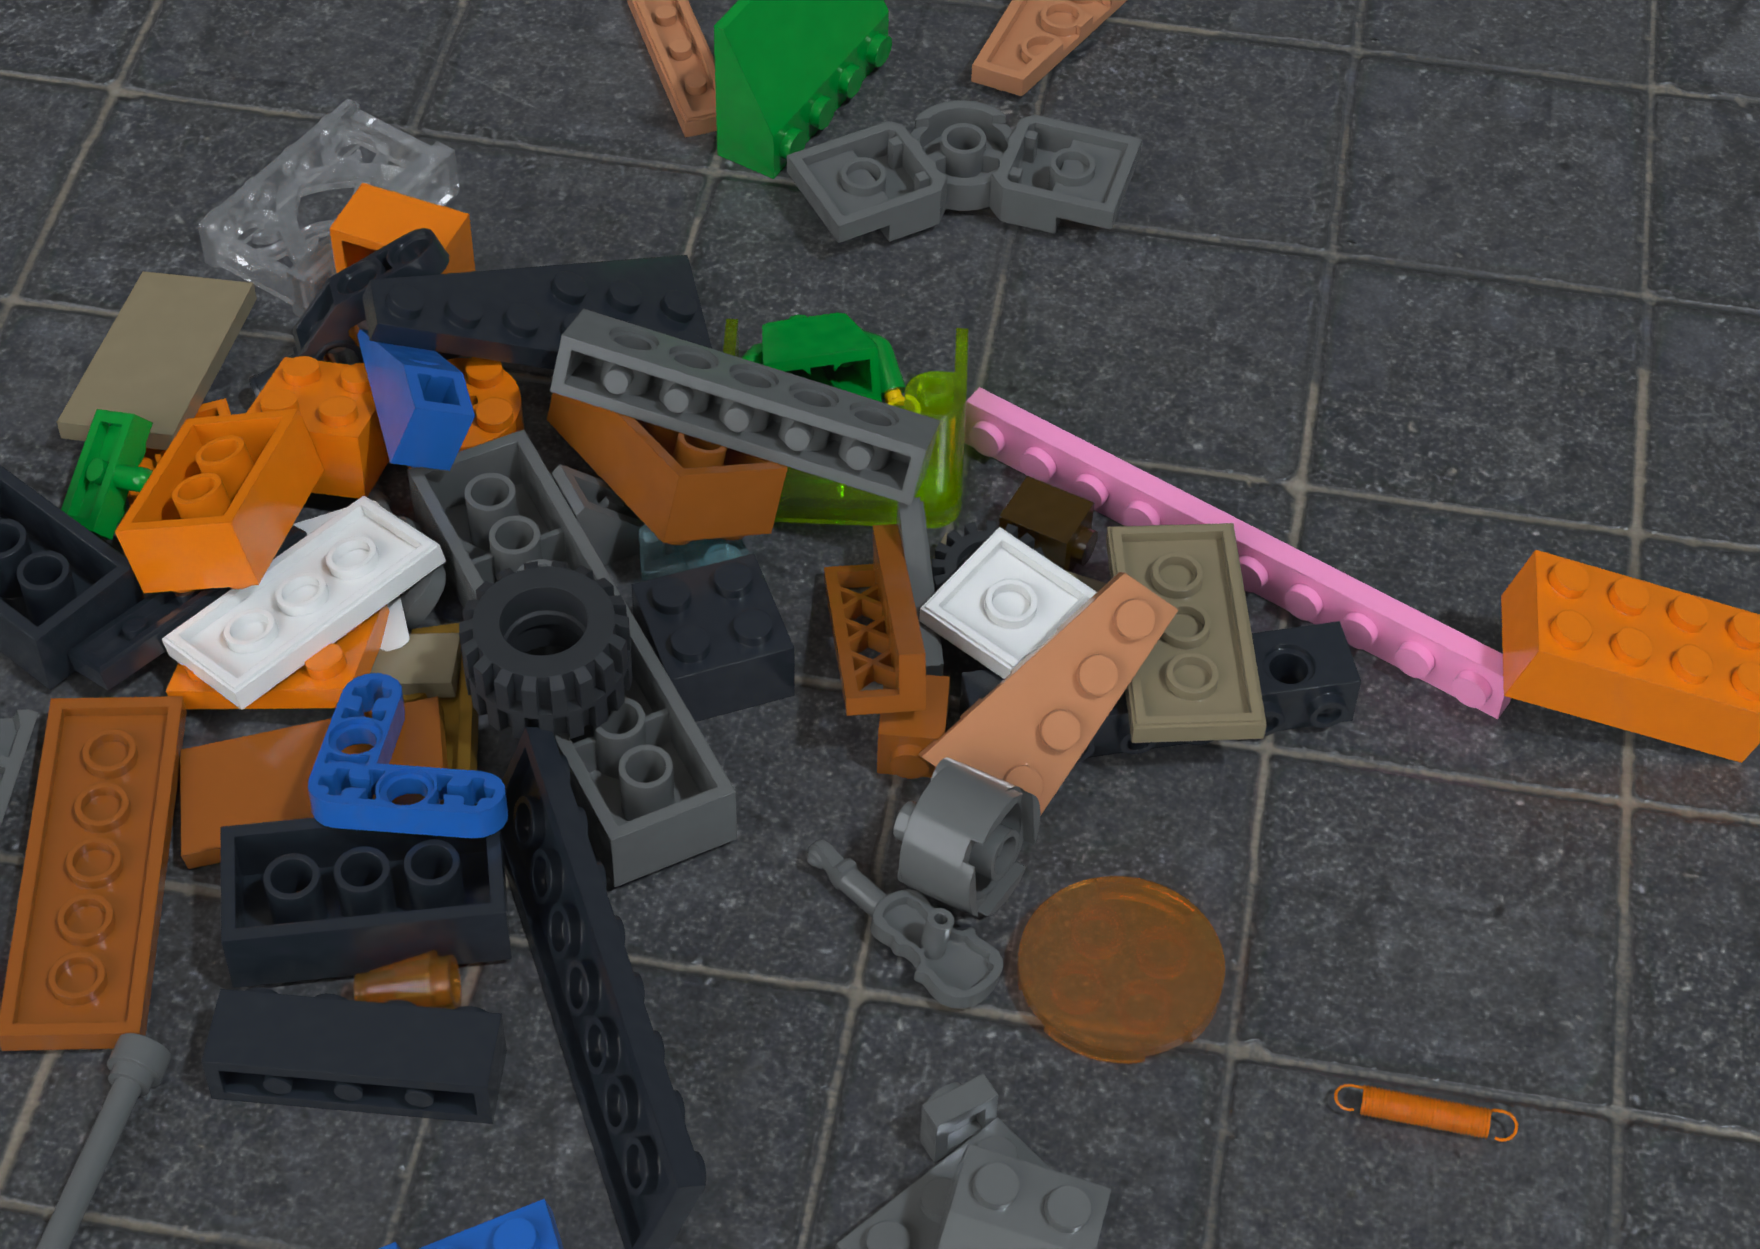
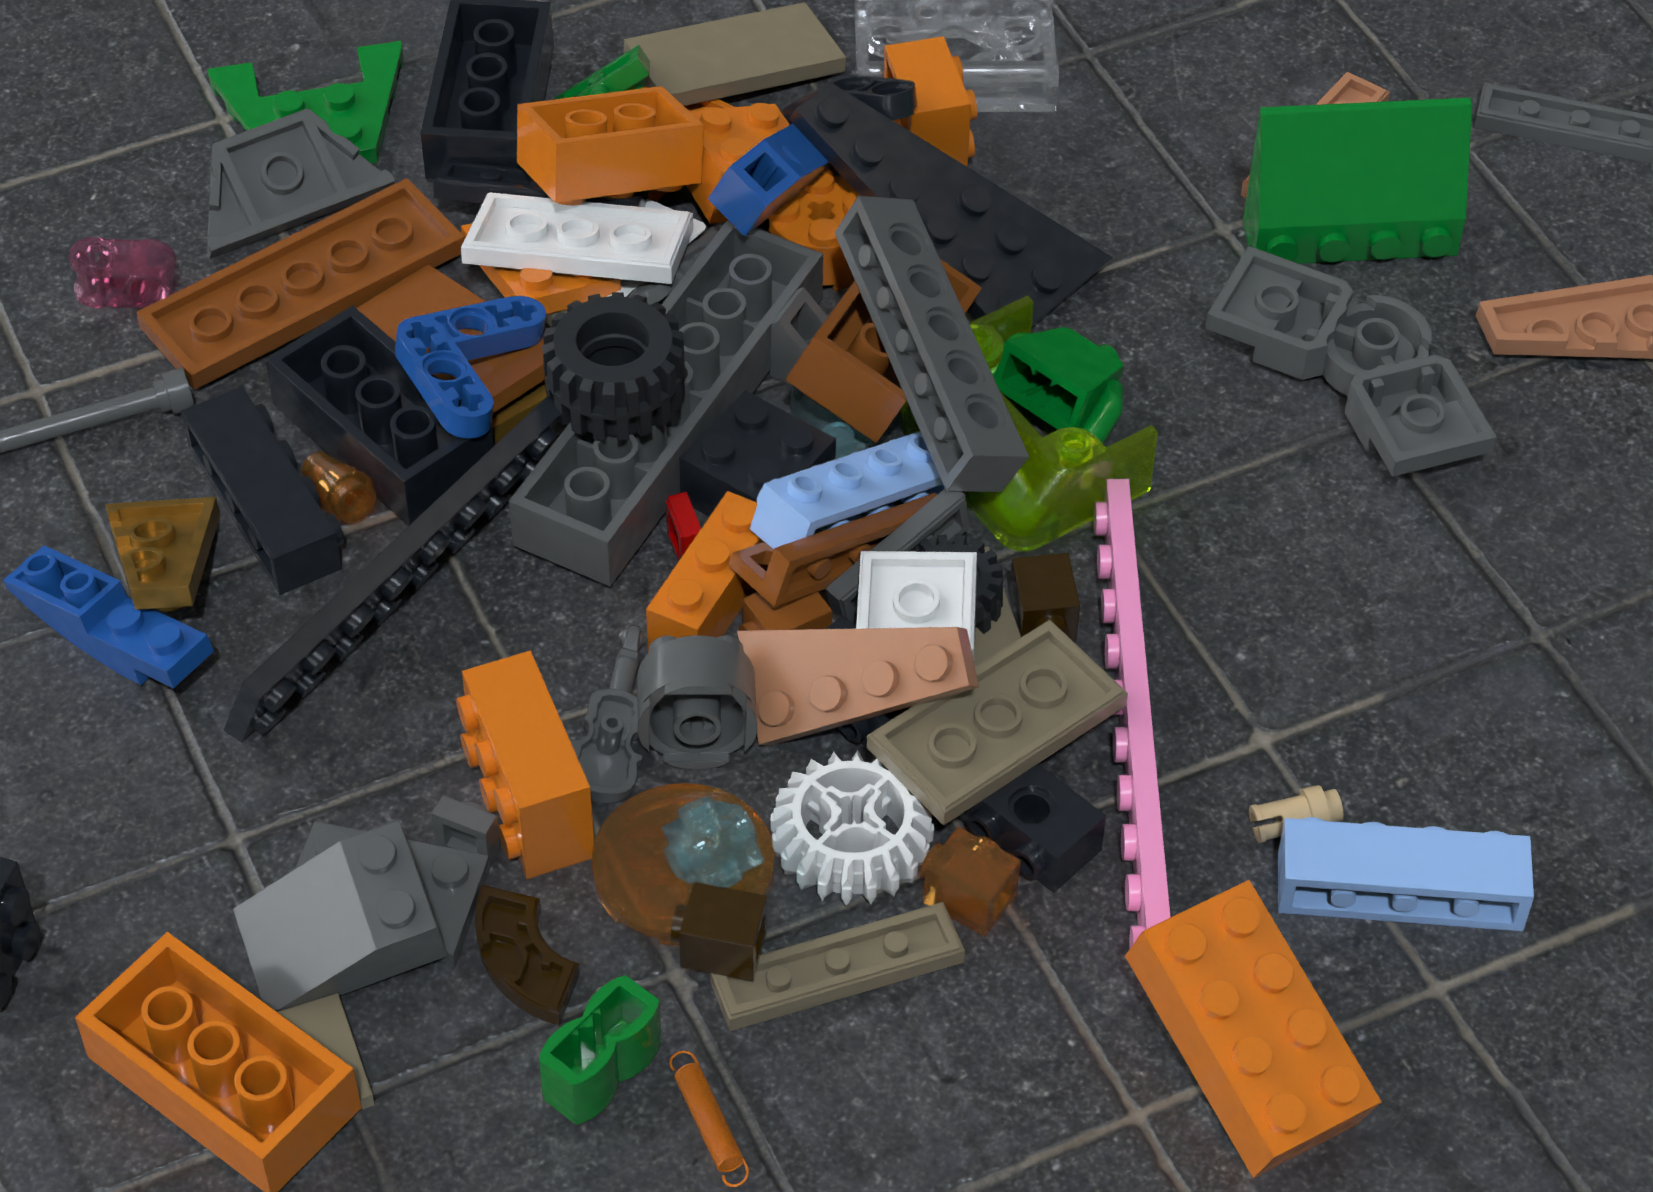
camera: 55 degrees right, 0 degrees up
(366, 1185) = (164, 548): none -> pearl gold wing
(738, 738) = (681, 523): none -> red tile
(819, 750) = (702, 589): none -> orange brick
(837, 580) = (845, 490): none -> light blue brick
(938, 1010) = (526, 765): none -> orange brick
(1136, 1163) = (519, 957): none -> dark brown tile
(1161, 917) = (728, 847): none -> clear light blue brick
(1201, 798) = (855, 847): none -> white gear
(1255, 970) = (721, 931): none -> dark brown brick
(1317, 762) = (971, 879): none -> clear orange brick
(1318, 1145) = (604, 1047): none -> green brick
(1323, 922) = (841, 966): none -> dark tan tile
(1412, 497) = (1310, 803): none -> tan animal
(1524, 476) = (1405, 874): none -> light blue brick

